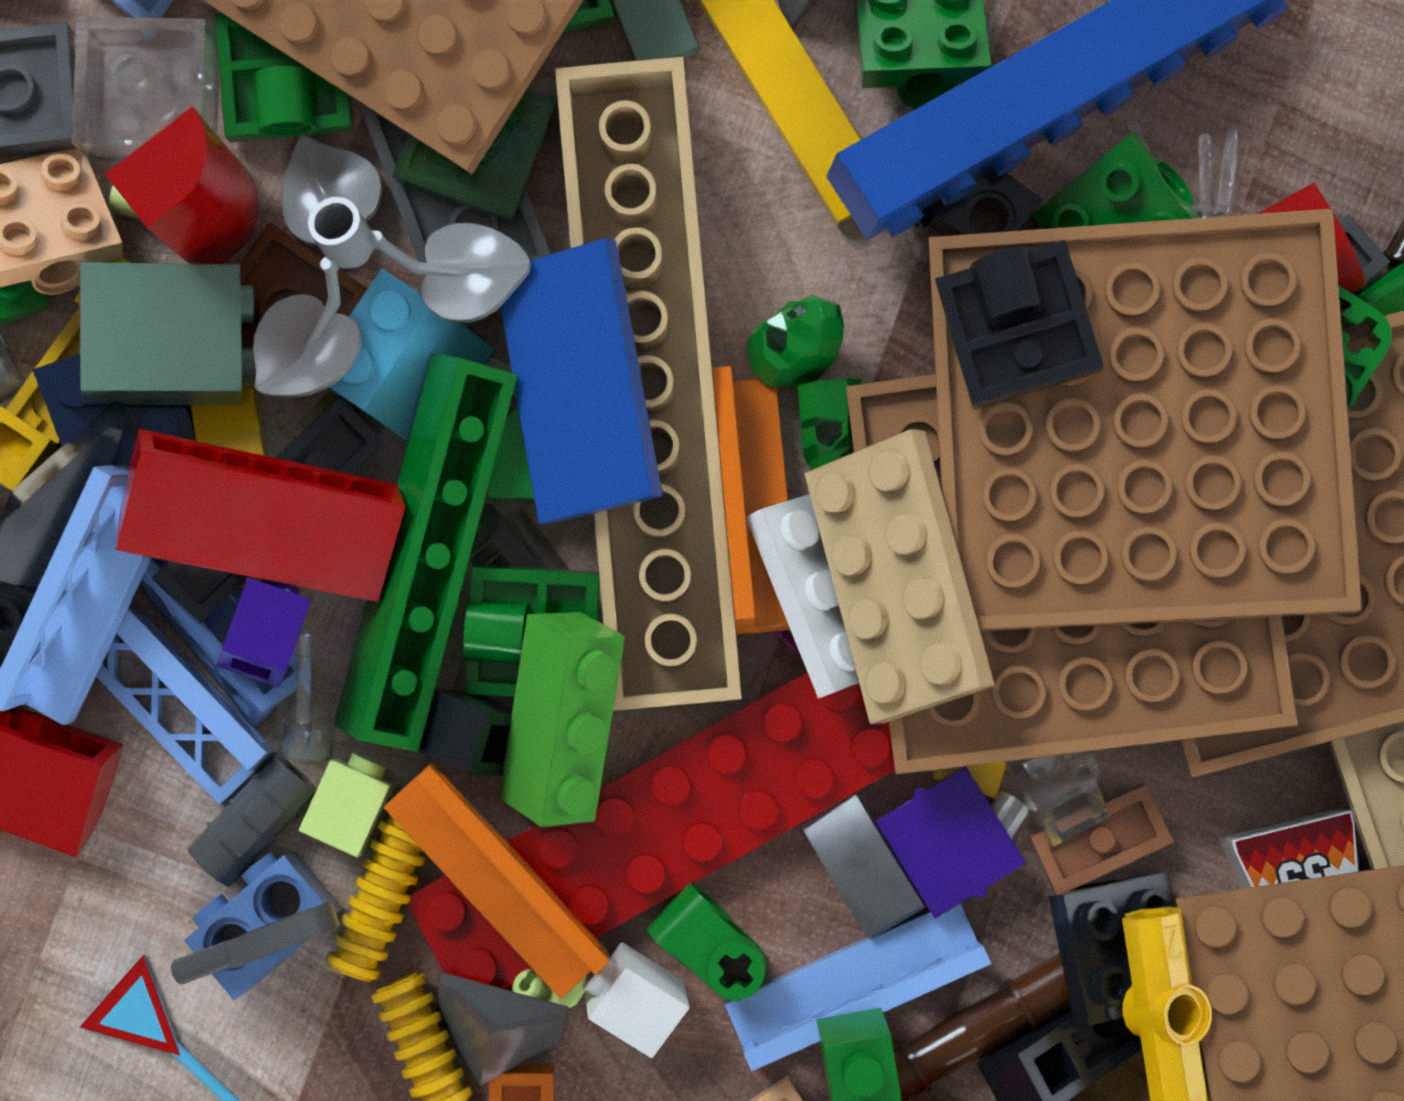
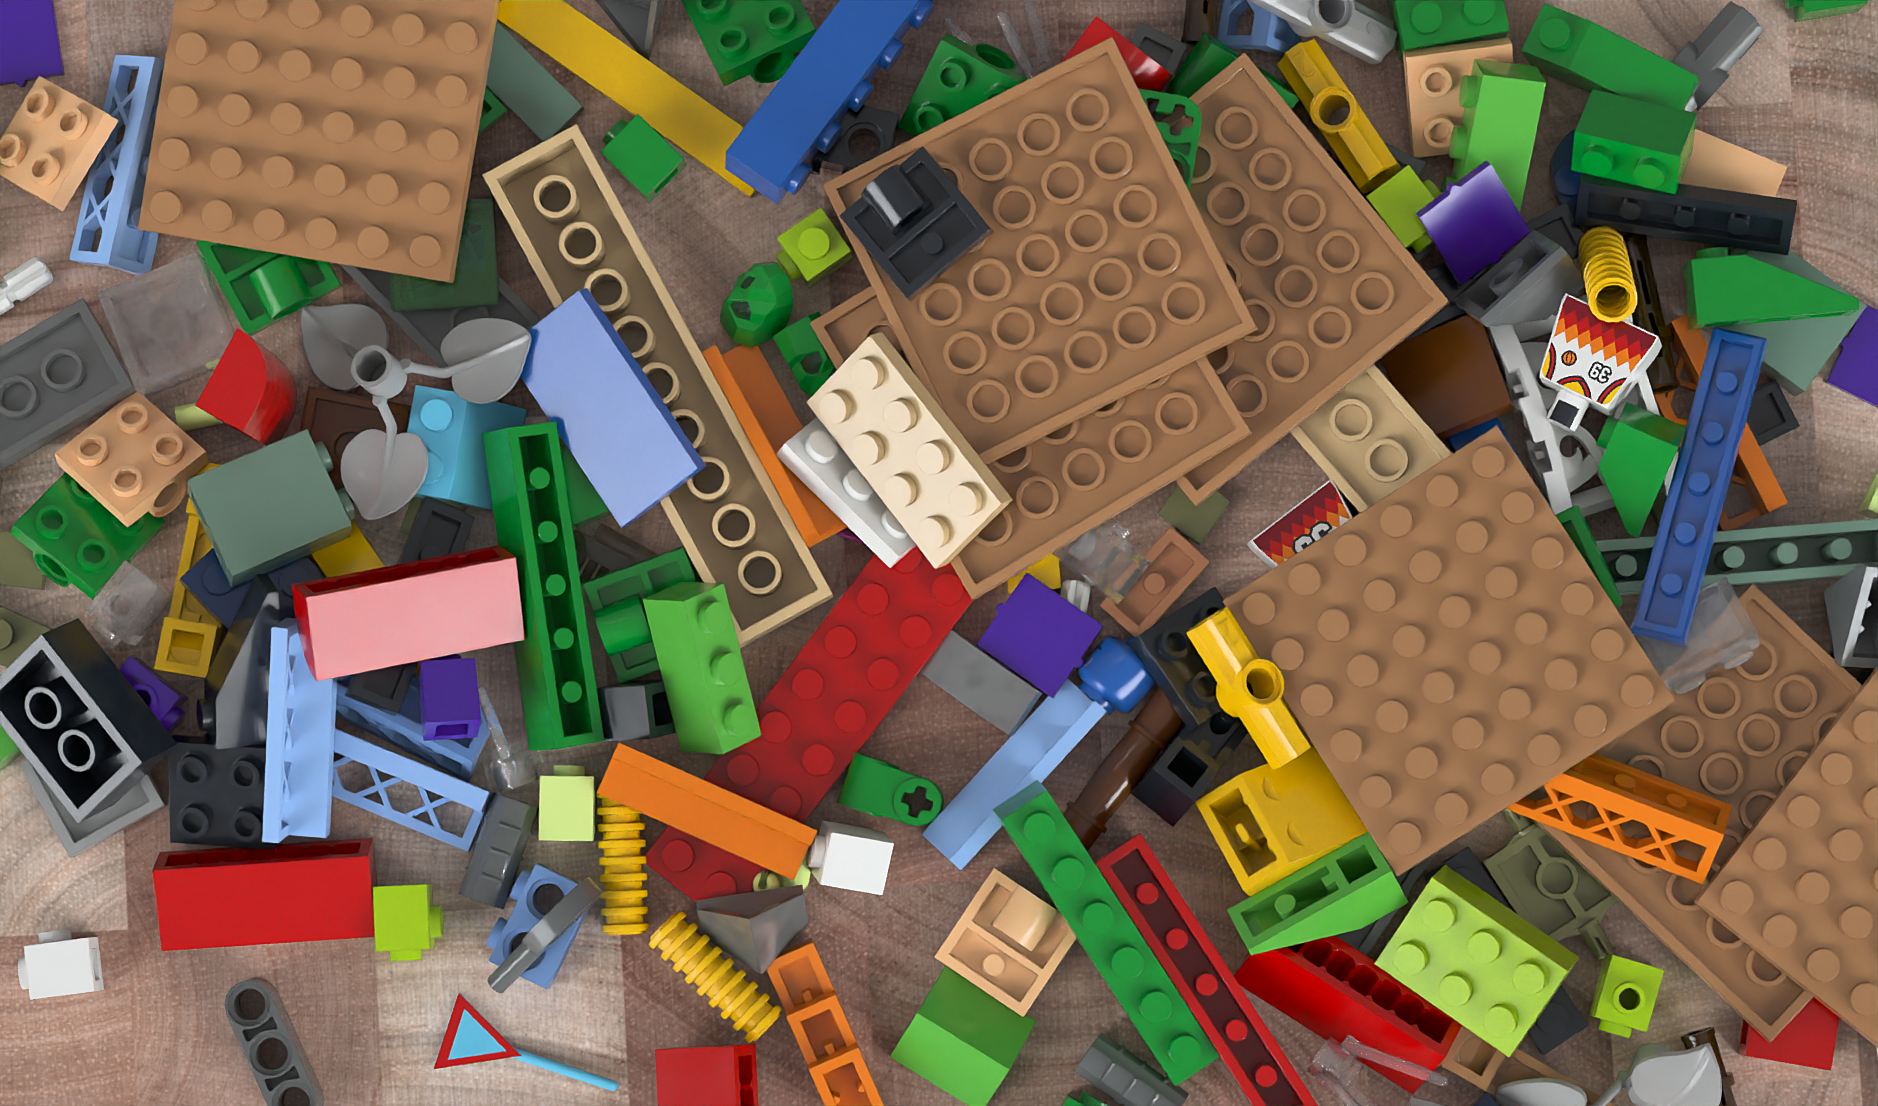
camera: 25 degrees left, 0 degrees up
(117, 852) = (406, 920): none -> lime brick
(739, 127) = (641, 156): none -> green brick
(883, 308) = (812, 249): none -> lime brick
(1015, 922) = (1115, 676): none -> blue head
(1169, 779) = (1193, 520): none -> olive tile

